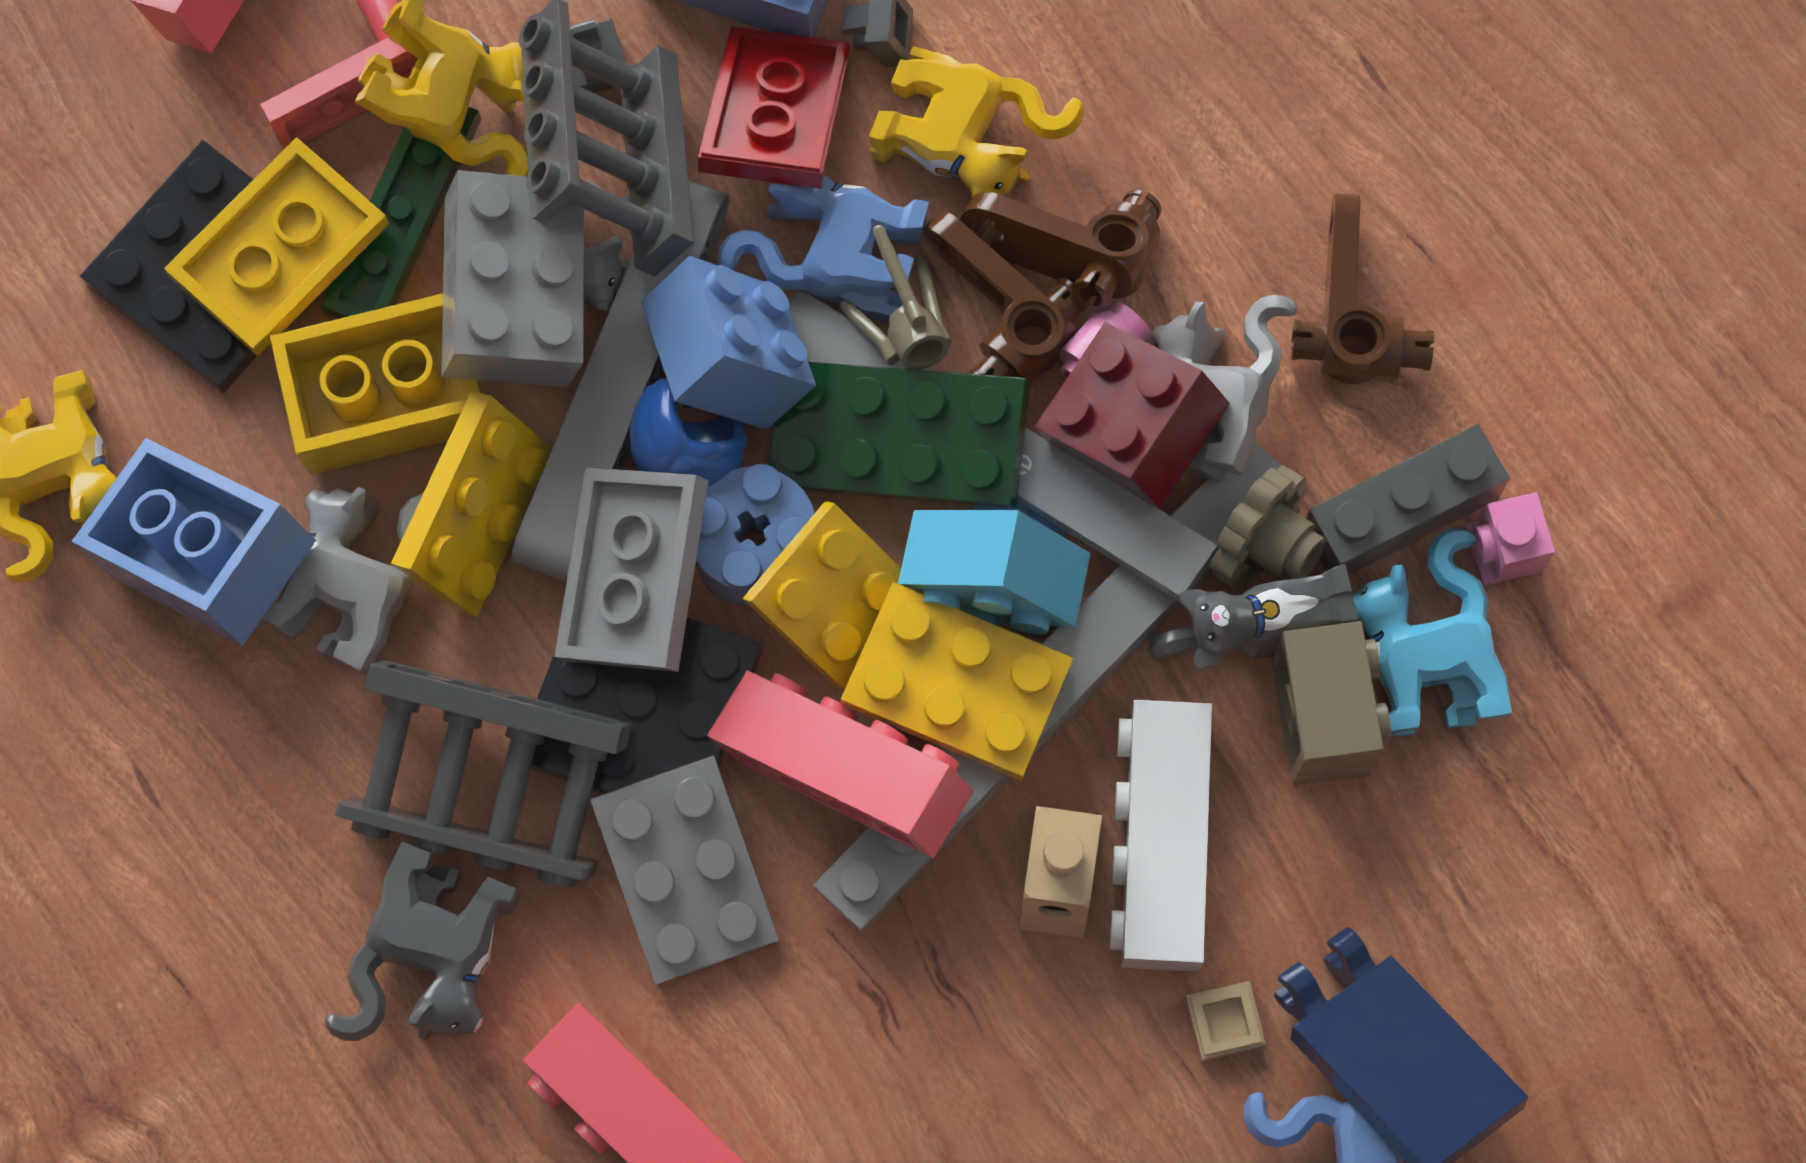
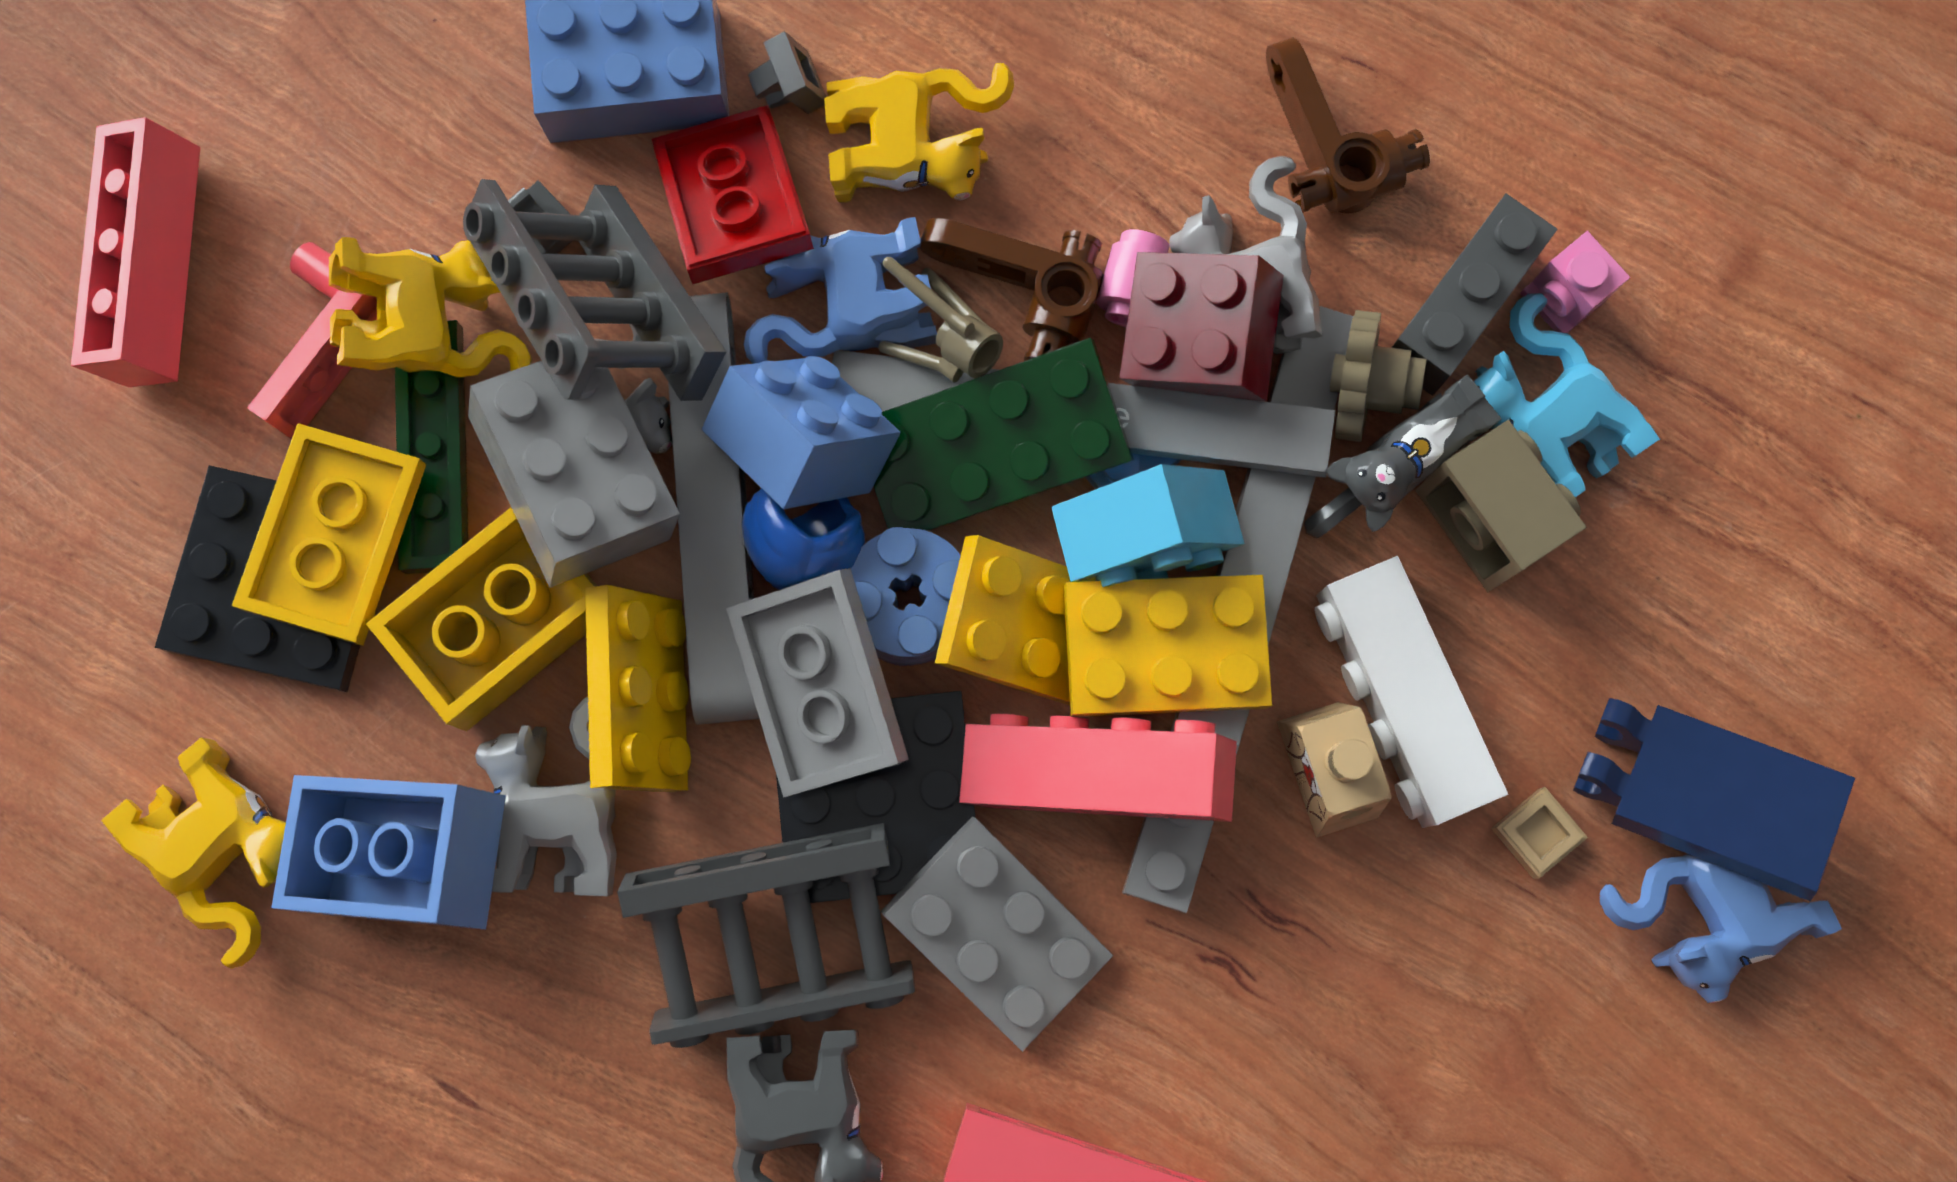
camera: 30 degrees left, 5 degrees up
(1098, 258) = (1092, 199): reddish brown piece -> none

